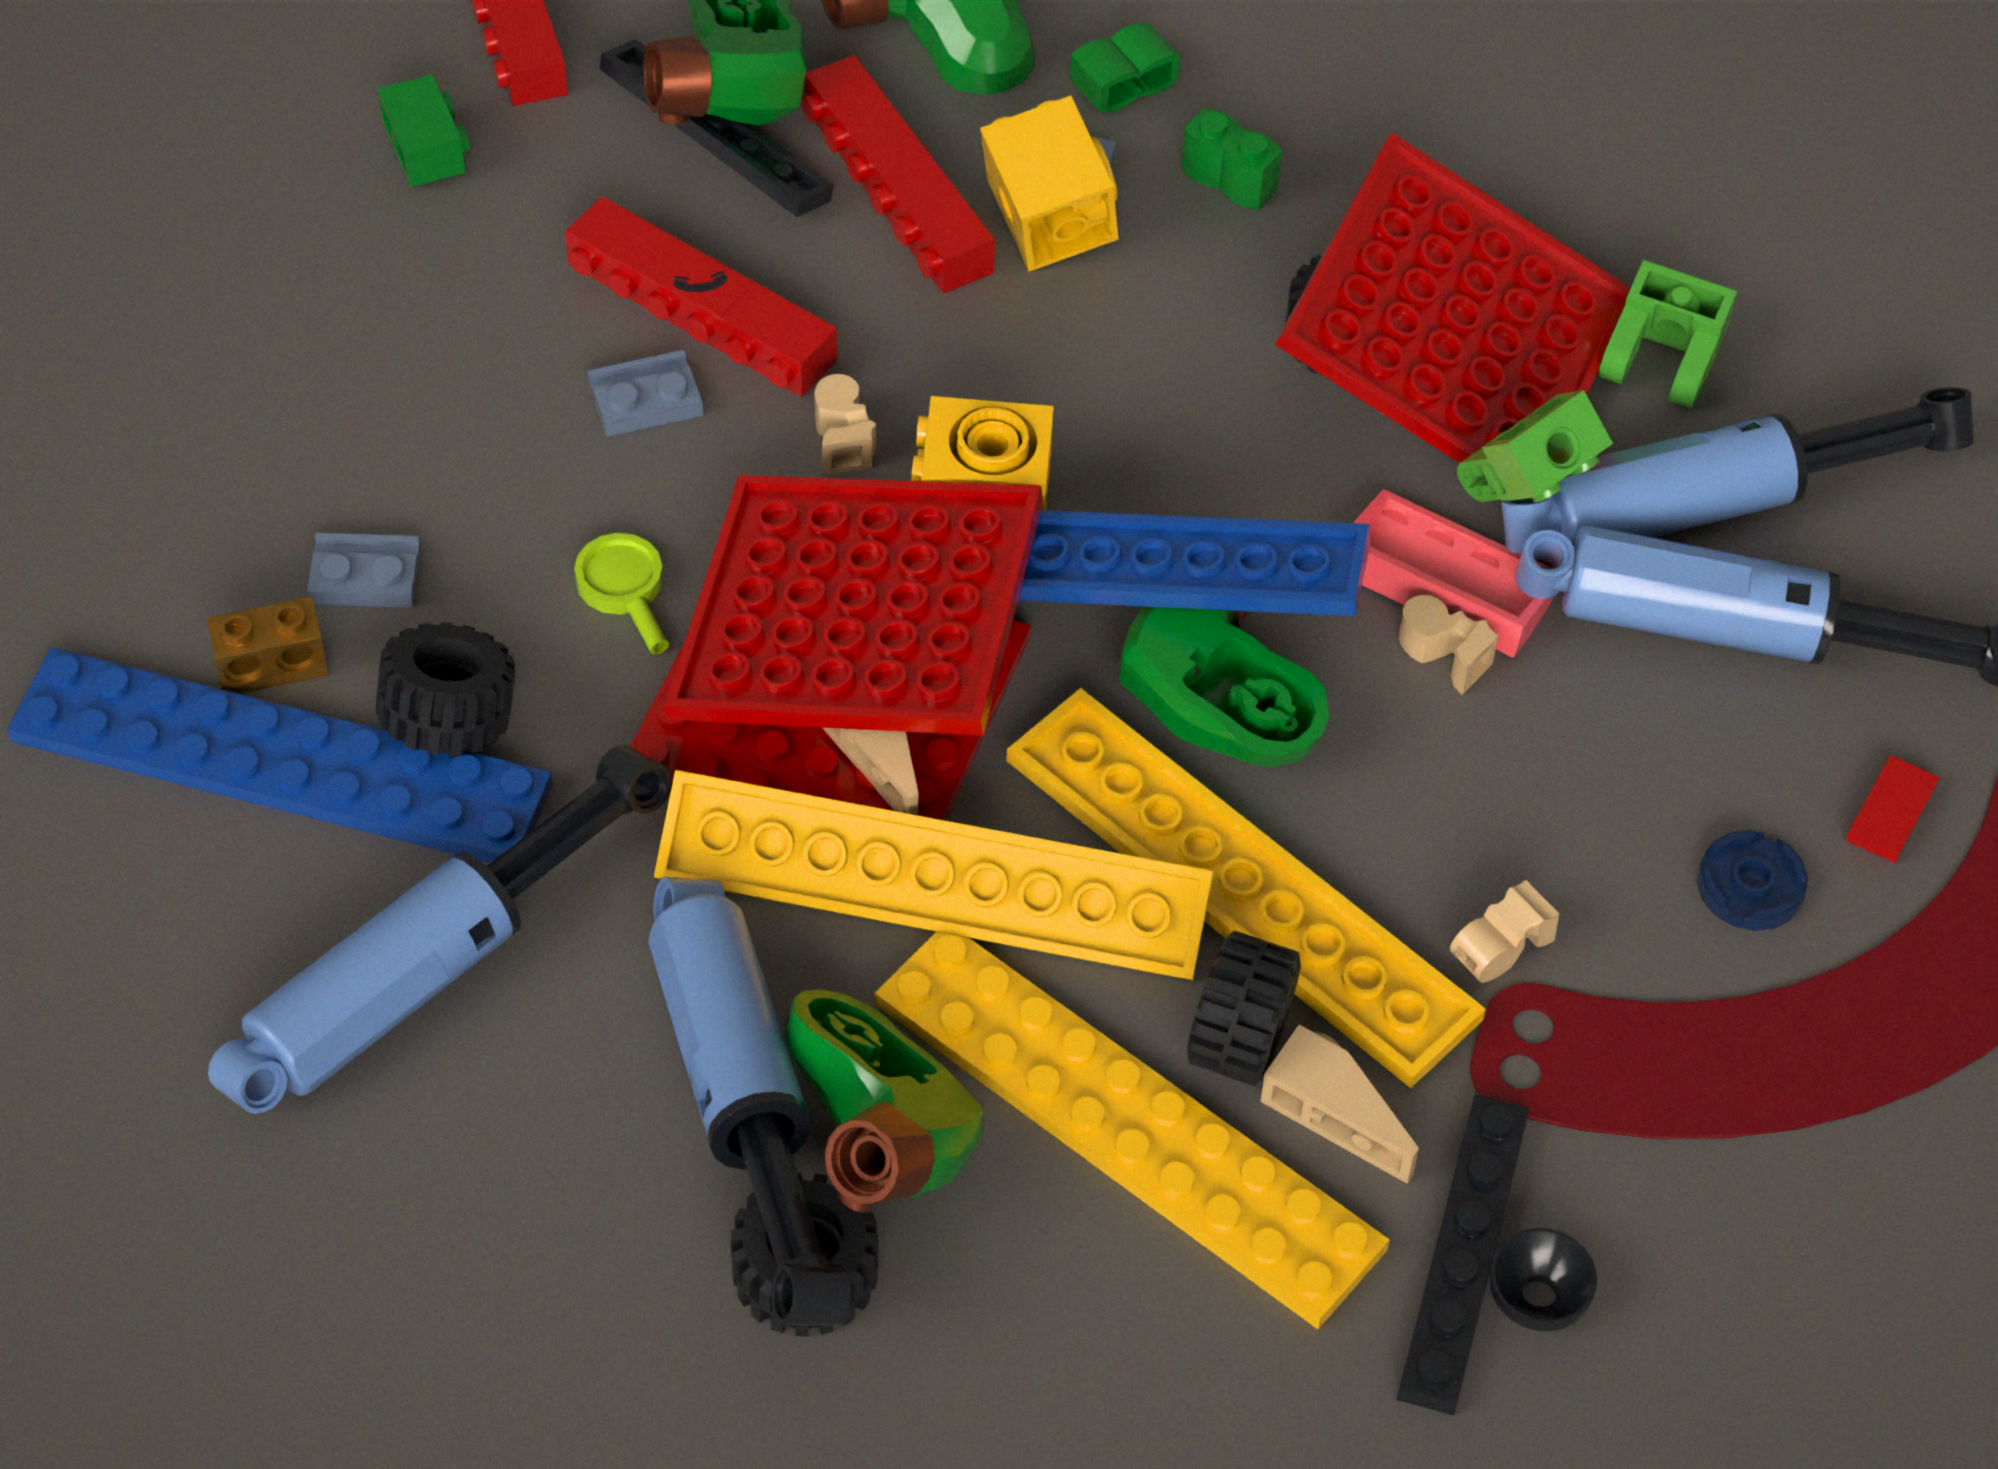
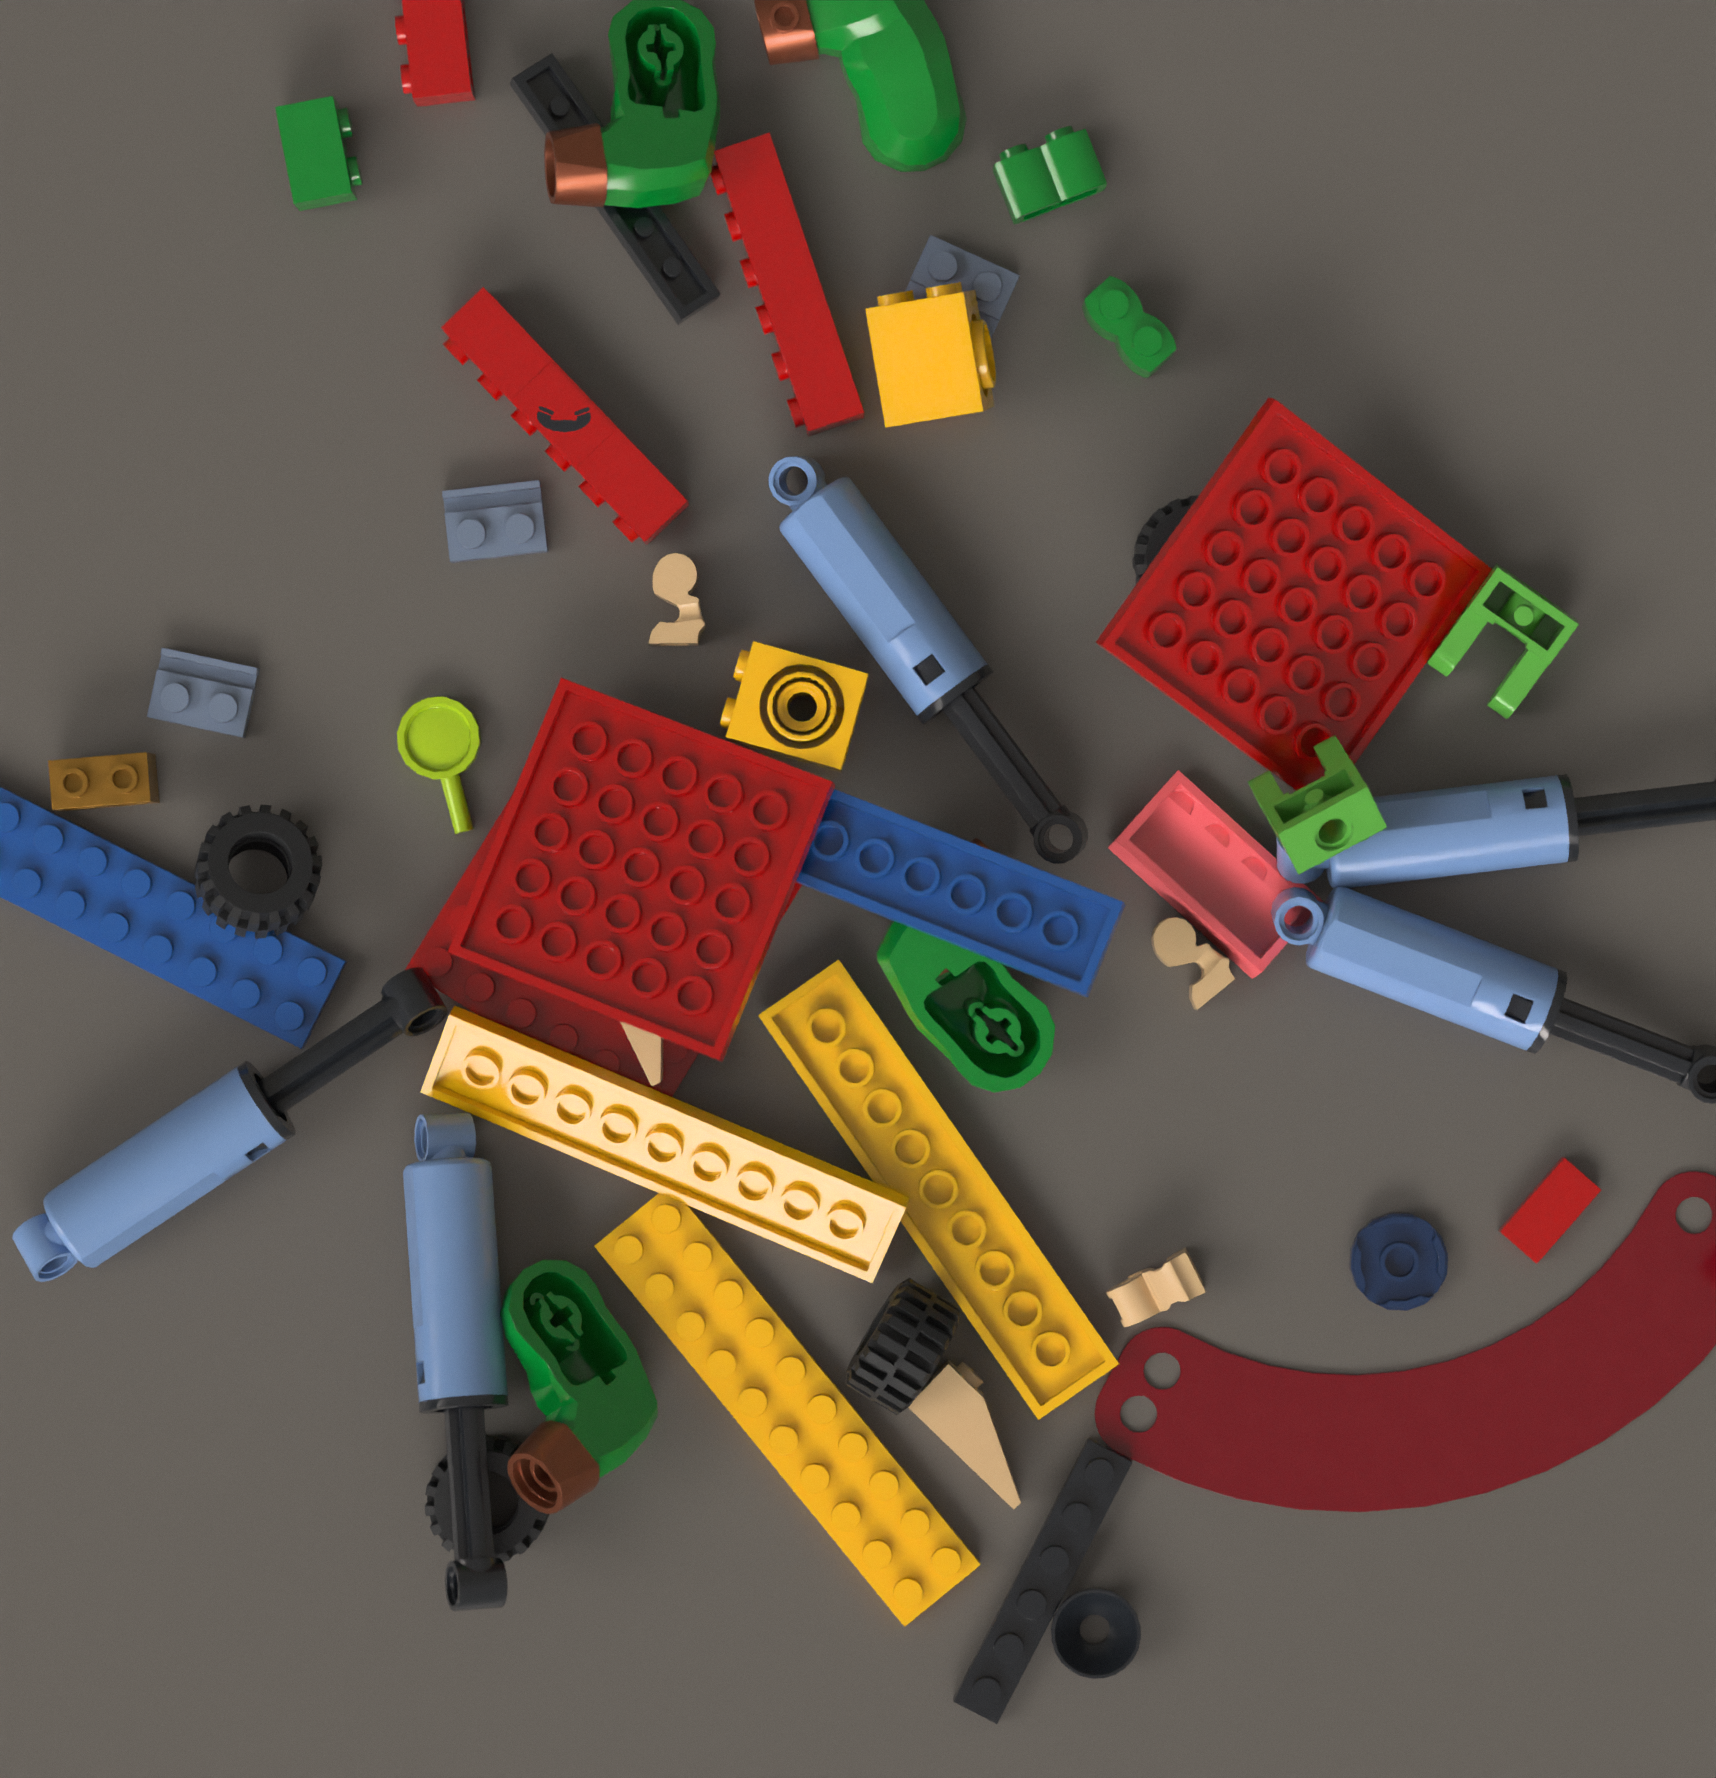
camera: 15 degrees right, 35 degrees up
(1095, 407) = (911, 635): none -> medium blue piece

